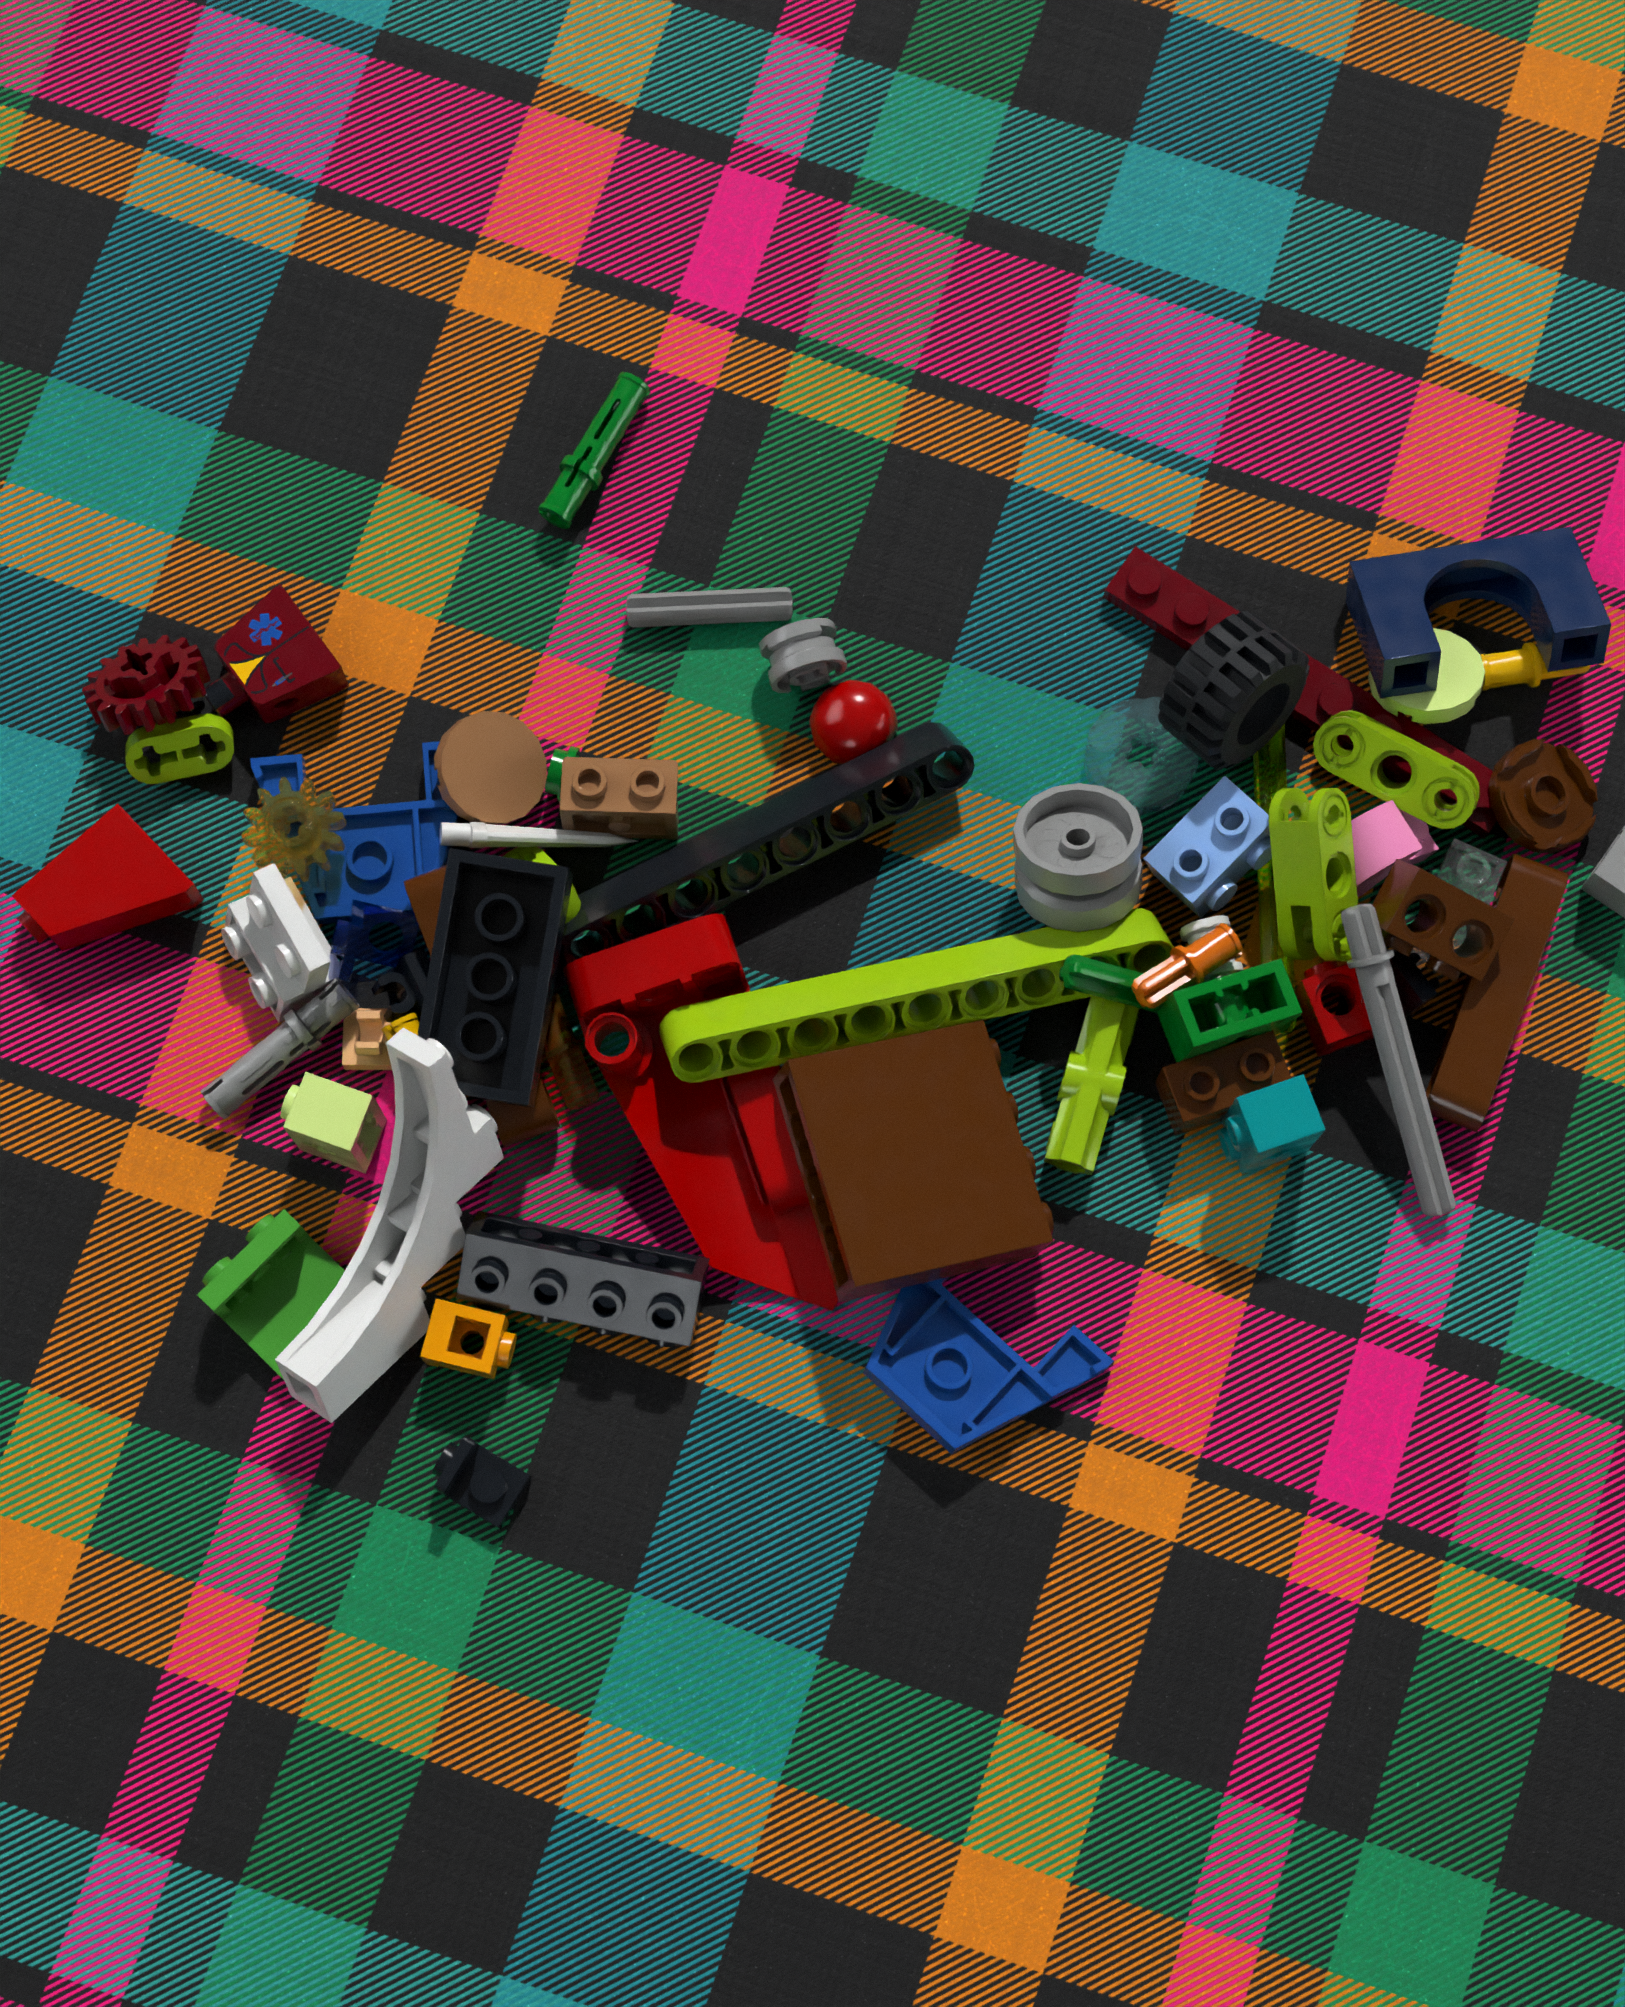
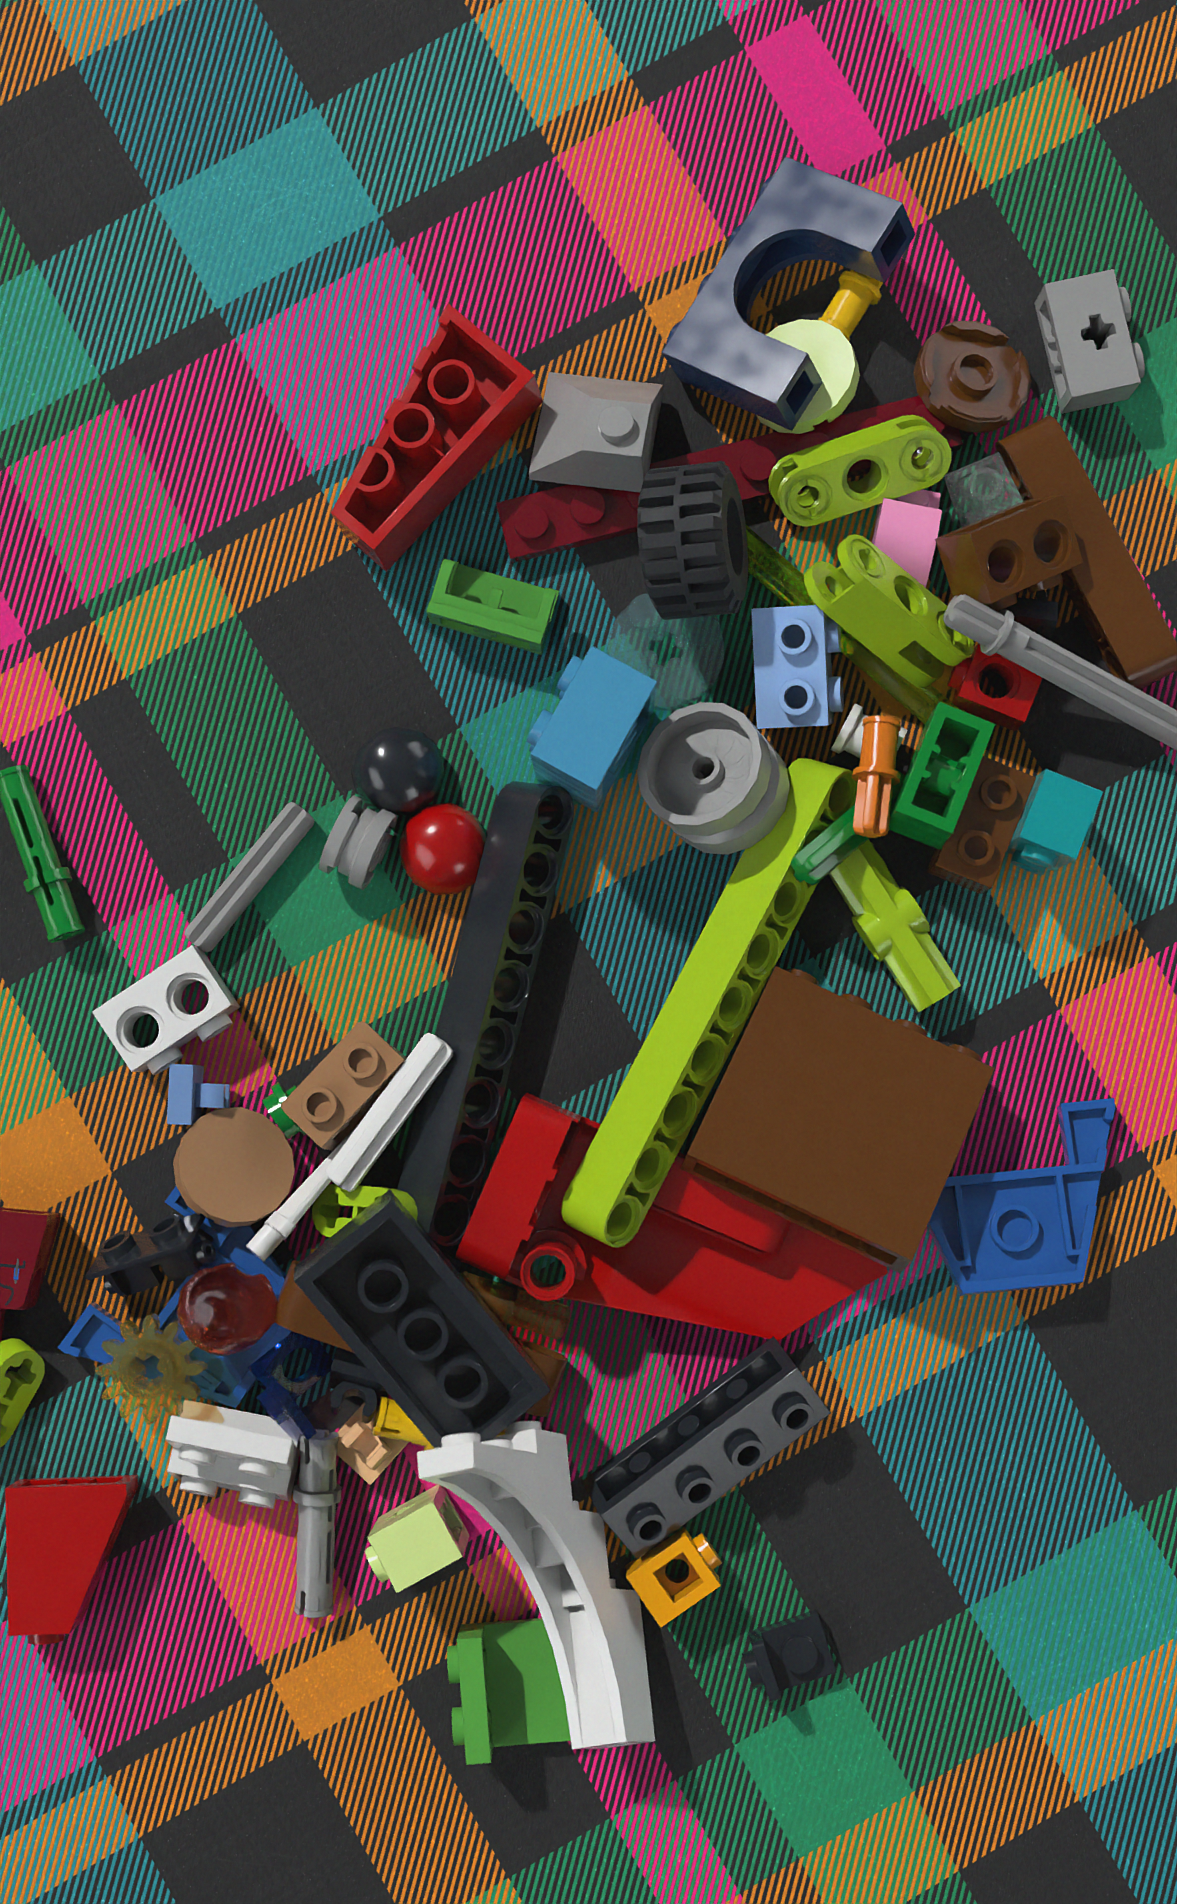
camera: 40 degrees left, 10 degrees up
(382, 842) = (226, 1309): none -> clear red hair
(395, 769) = (132, 1259): none -> black hinge
(517, 695) = (189, 1094): none -> medium blue tile
(568, 616) = (161, 996): none -> white brick
(628, 837) = (389, 1112): none -> white axle
(881, 643) = (398, 771): none -> black hair
(1033, 735) = (592, 727): none -> dark azure brick
(1058, 607) = (492, 606): none -> bright green hinge
(1138, 464) = (435, 438): none -> red wedge
(1251, 567) = (596, 432): none -> light grey slope

